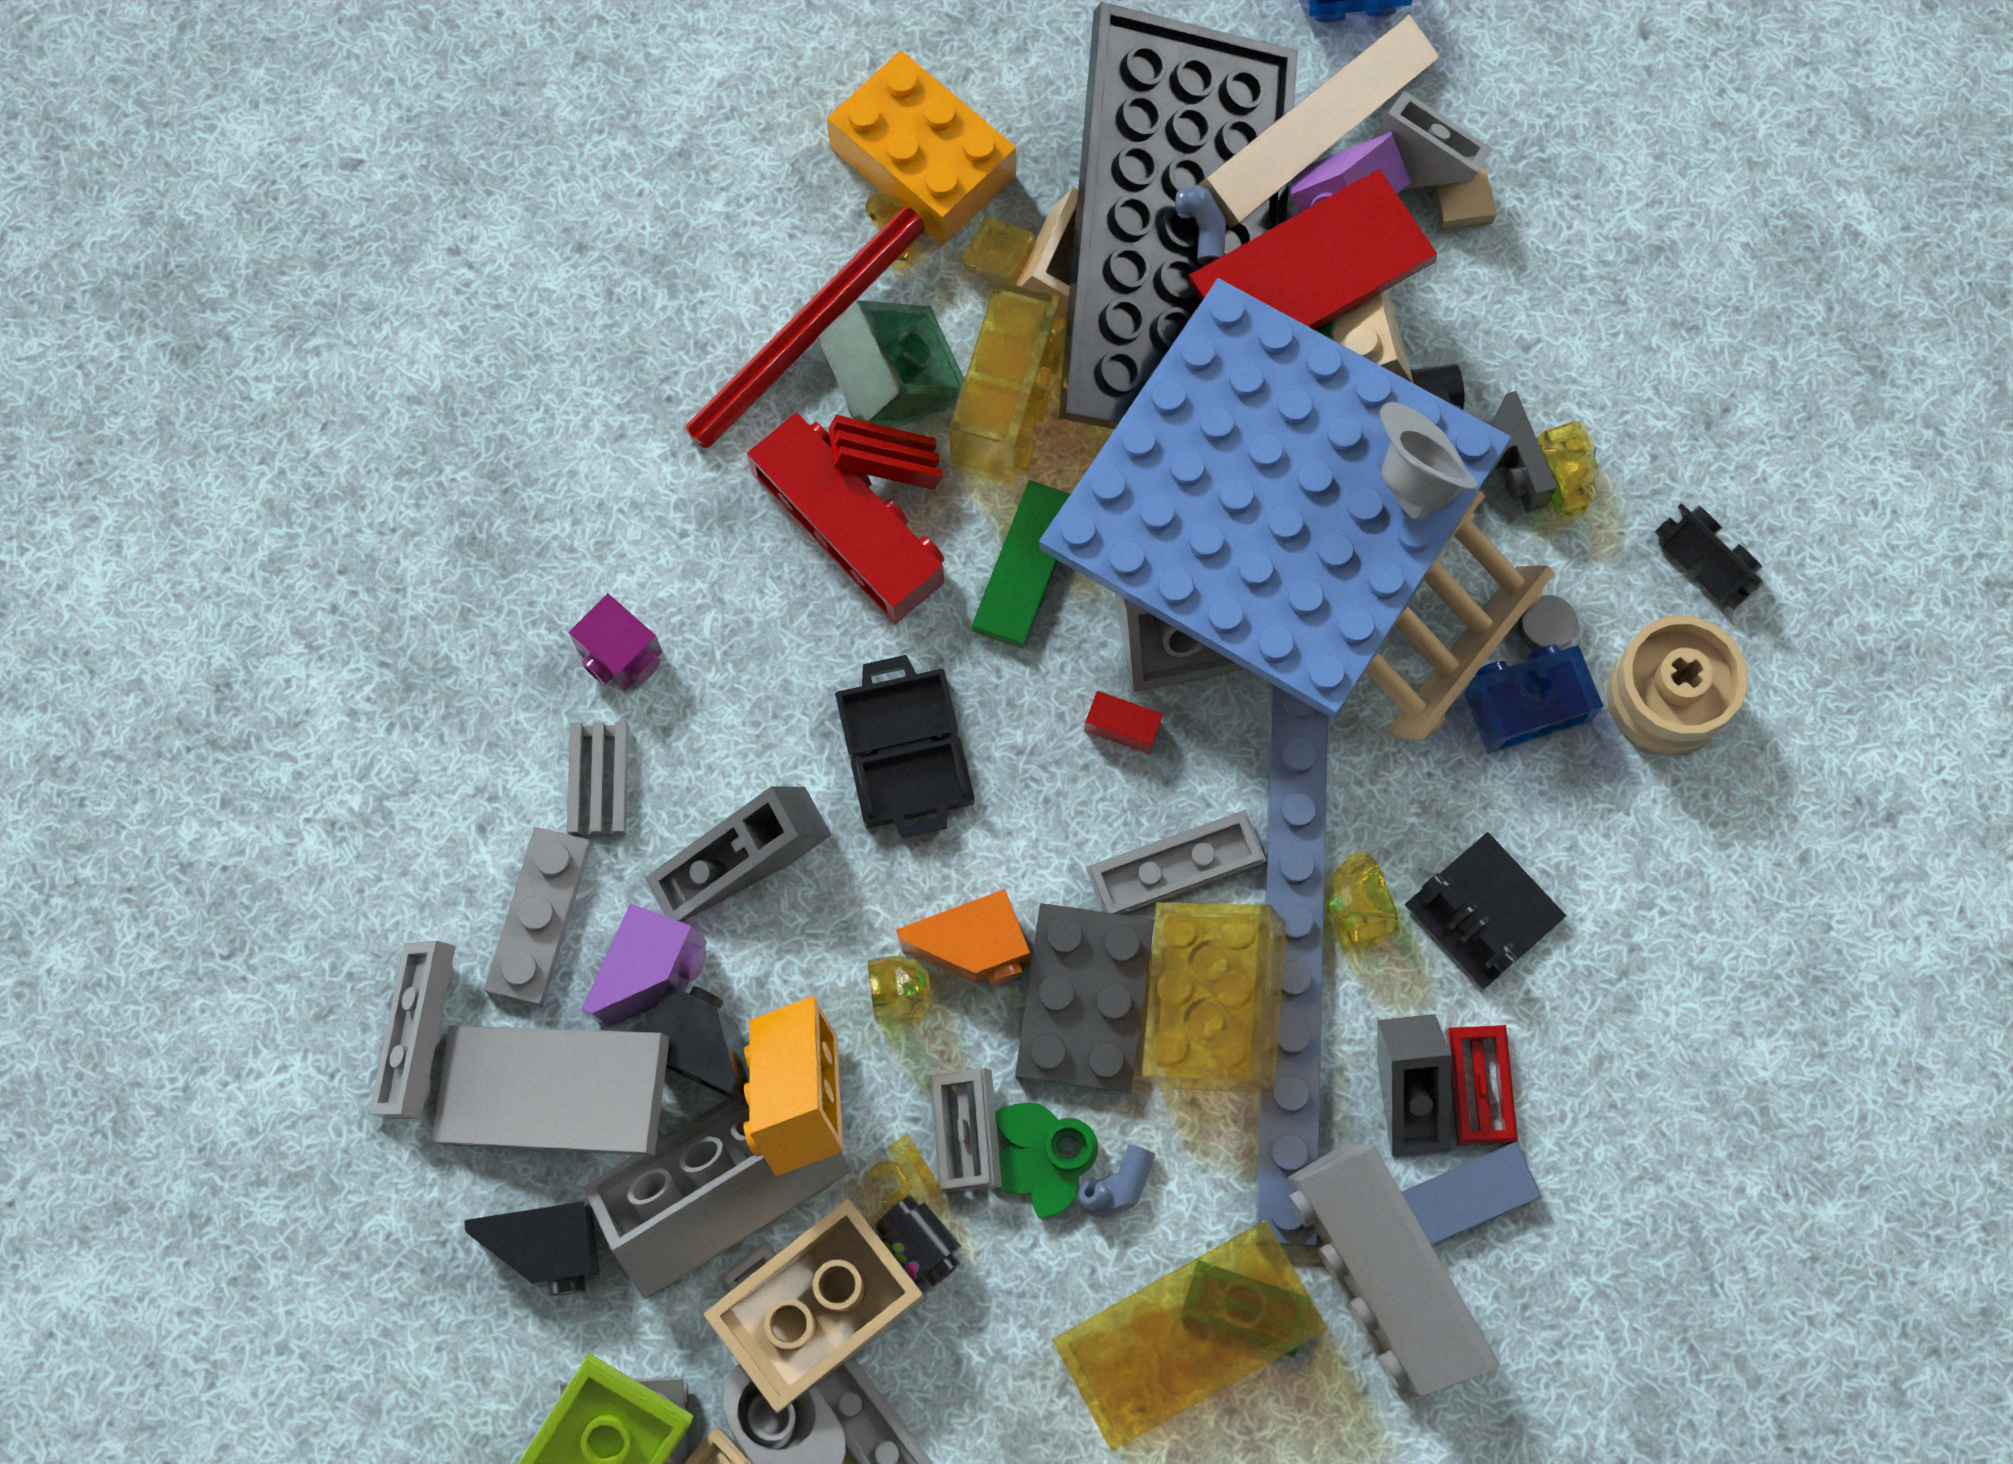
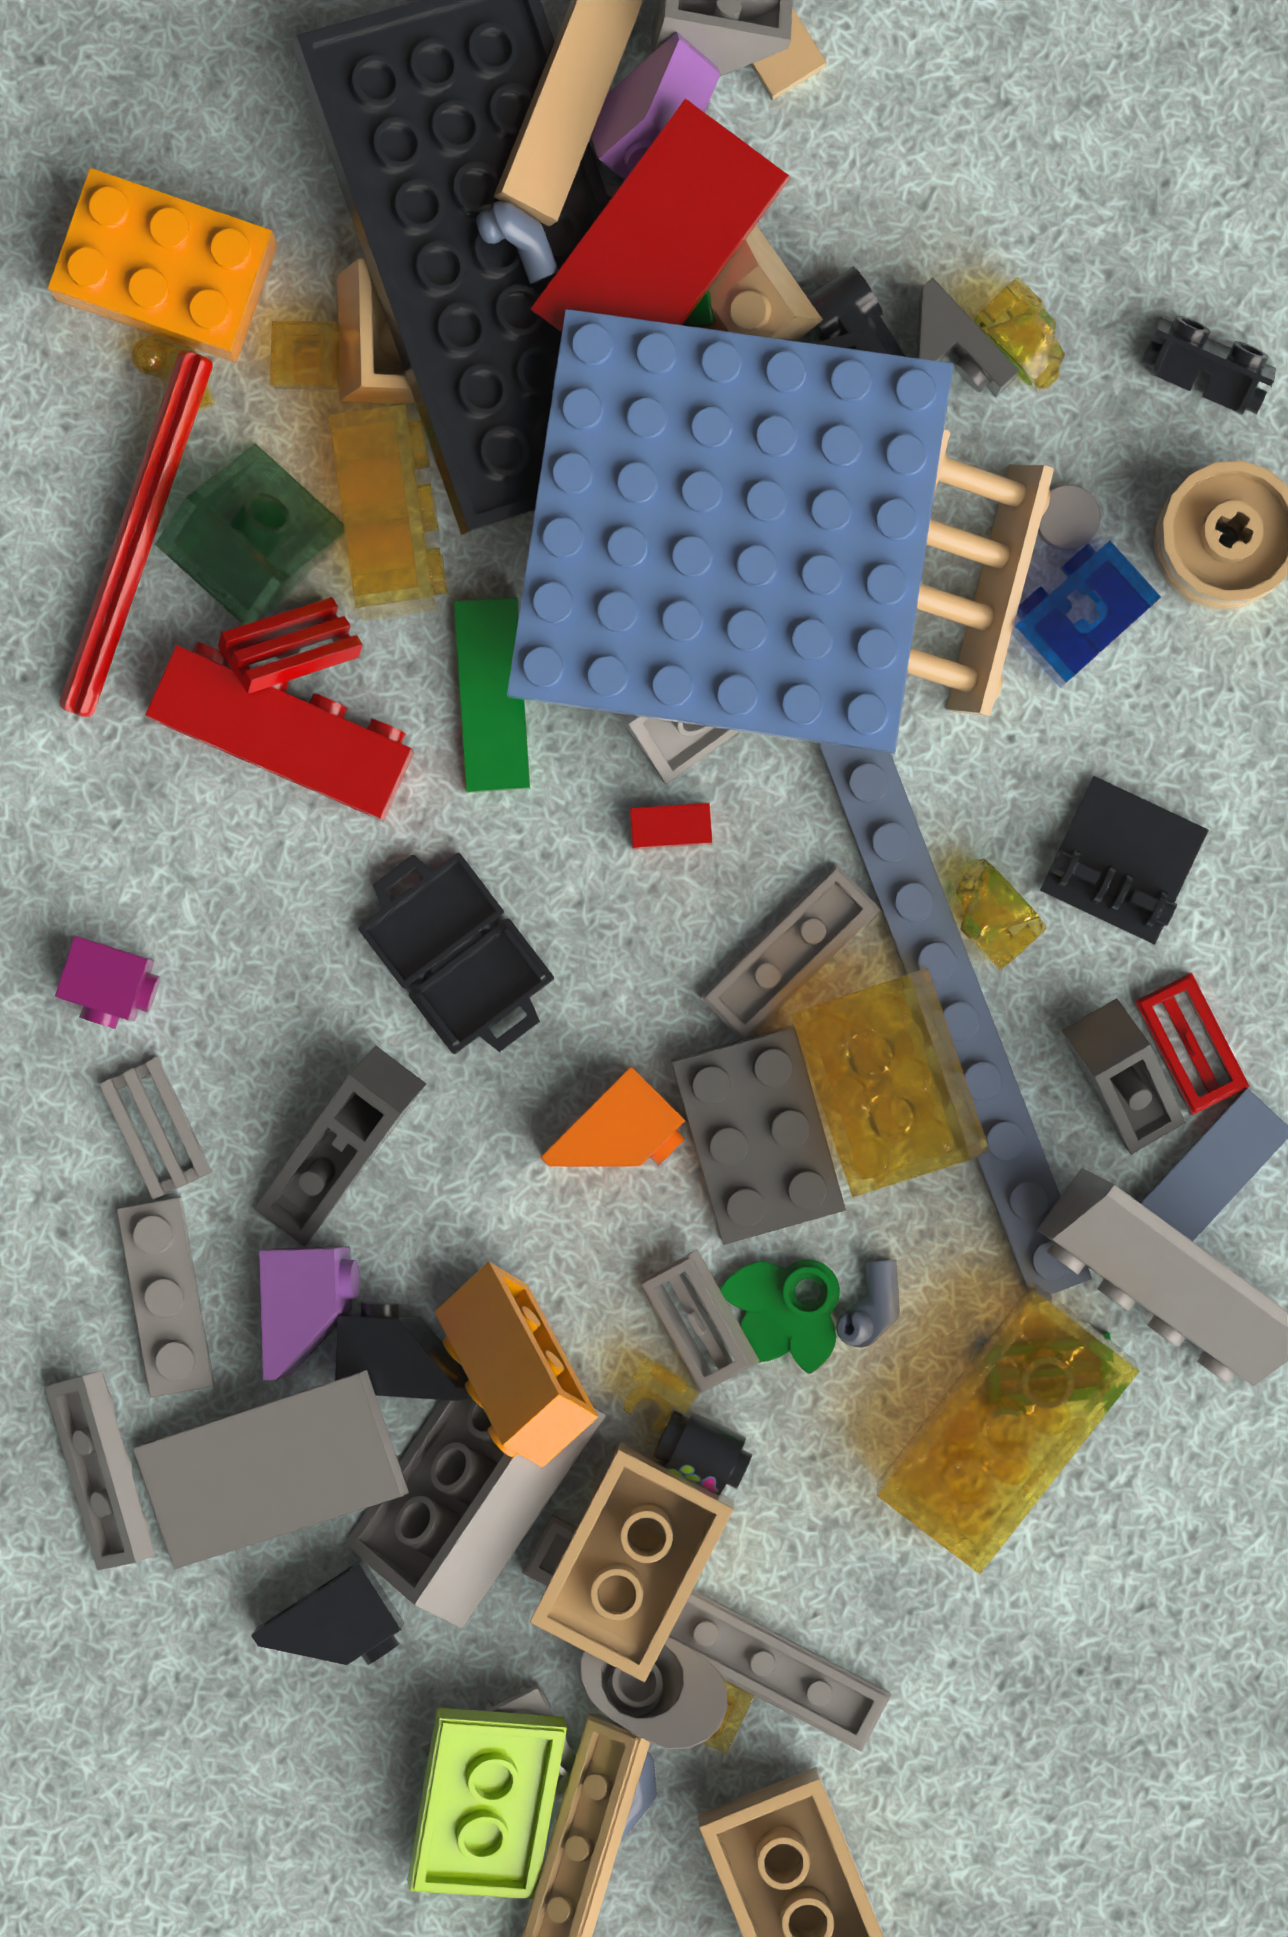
camera: 25 degrees left, 15 degrees up
(899, 990) = (569, 1212): clear yellow rock -> none
(1420, 462) = (874, 445): light grey piece -> none

